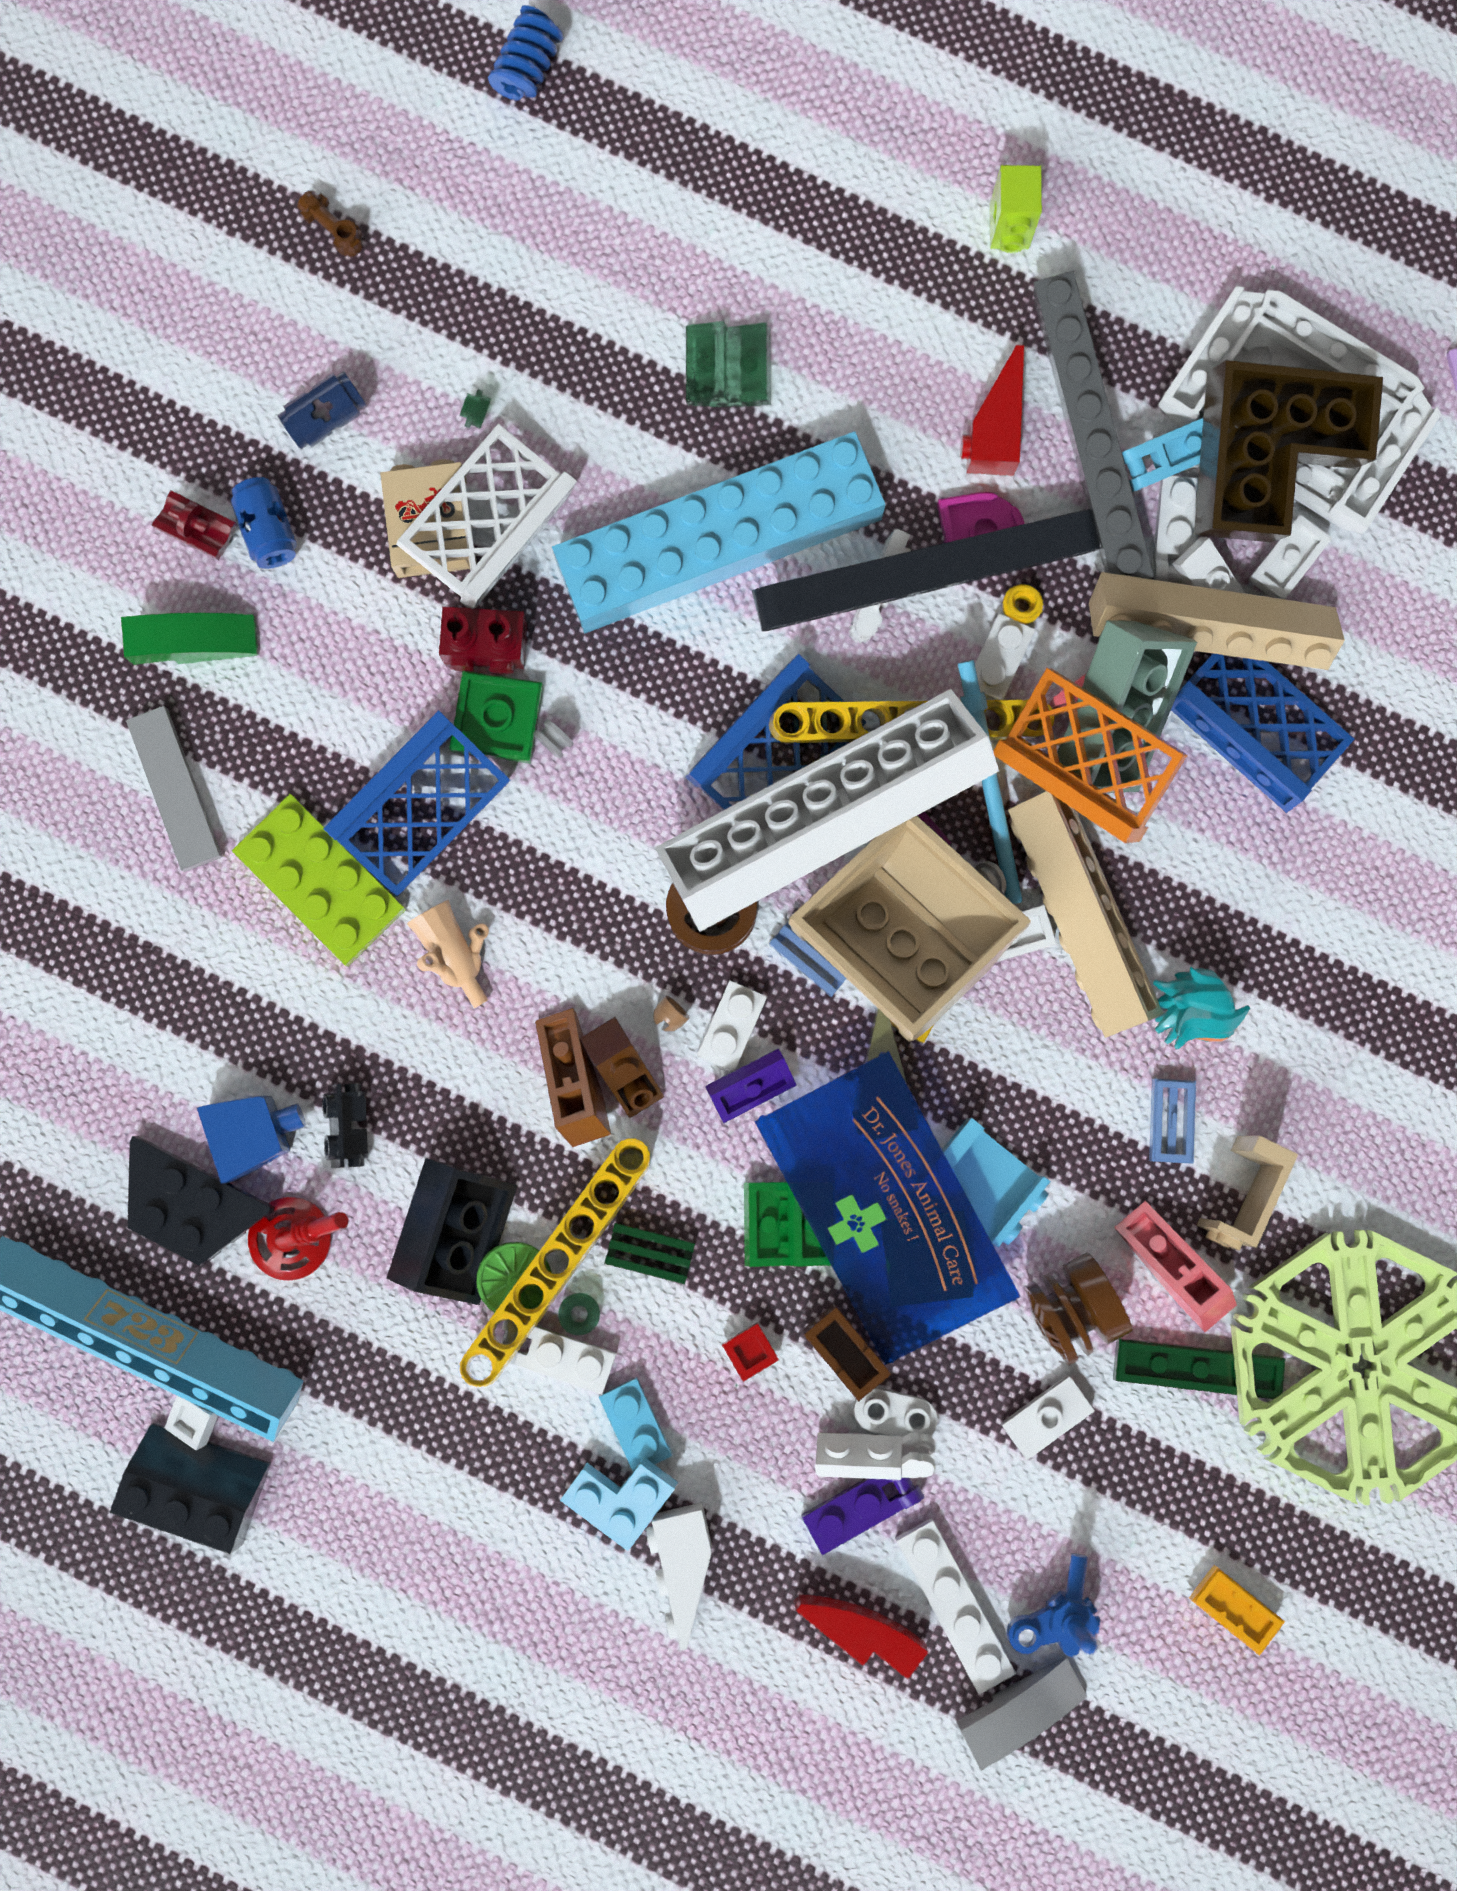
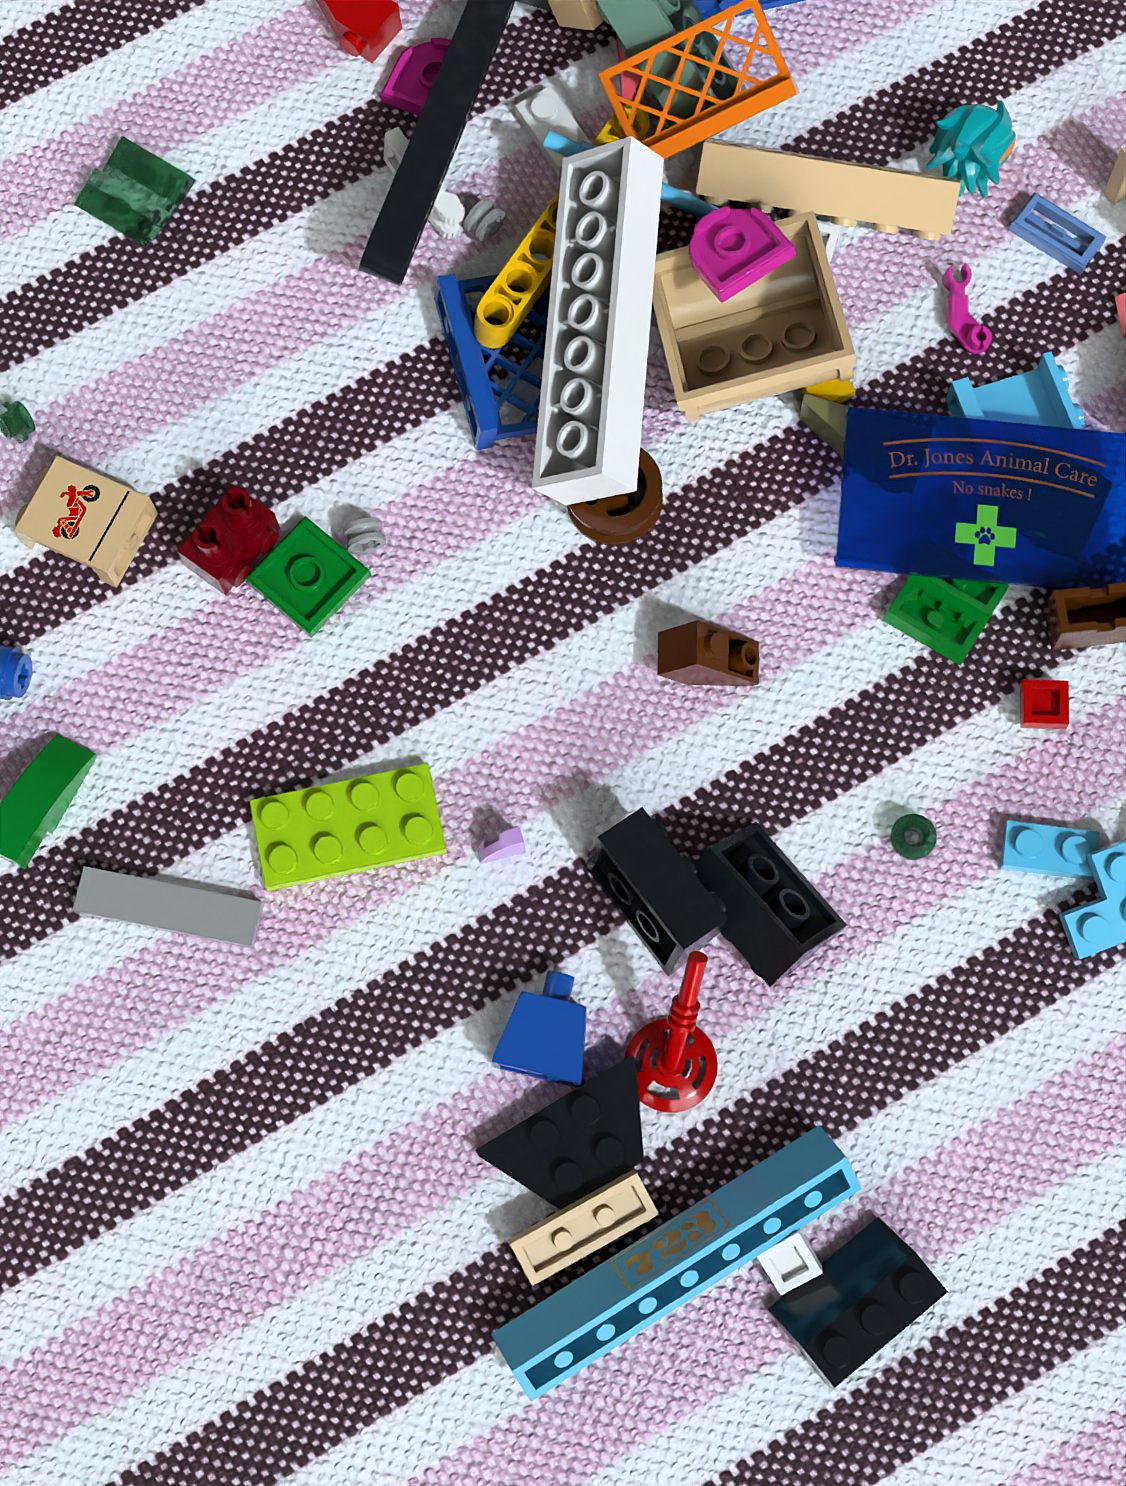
camera: 50 degrees left, 10 degrees down
(123, 1252) = (583, 1227): none -> tan plate
(341, 1110) = (577, 935): black hinge -> none
(375, 1006) = (508, 844): none -> lavender tile
(391, 778) = (301, 697): blue fence -> none
(405, 1149) = (656, 889): none -> black slope
(449, 951) = (497, 745): light nougat piece -> none
(502, 1270) = (844, 876): bright green wheel -> none
(515, 538) = (161, 461): white fence -> none
(537, 1273) = (855, 839): yellow beam -> none
(562, 1357) = (939, 882): white plate -> none
(571, 1080) = (690, 706): dark orange slope -> none
(615, 1245) = (923, 714): dark green tile -> none
(671, 1013) = (687, 588): medium nougat hinge -> none
(719, 532) = (279, 286): medium azure brick -> none
(731, 1026) = (732, 544): white plate -> none
(751, 1085) = (799, 556): dark purple plate -> none
(786, 932) = (709, 421): medium blue tile -> none
(880, 655) = (484, 220): none -> light grey bush
(955, 880) = (736, 249): none -> dark pink tile
(1025, 593) = (520, 73): yellow plate -> none
(1042, 1086) = (958, 319): none -> dark pink arm

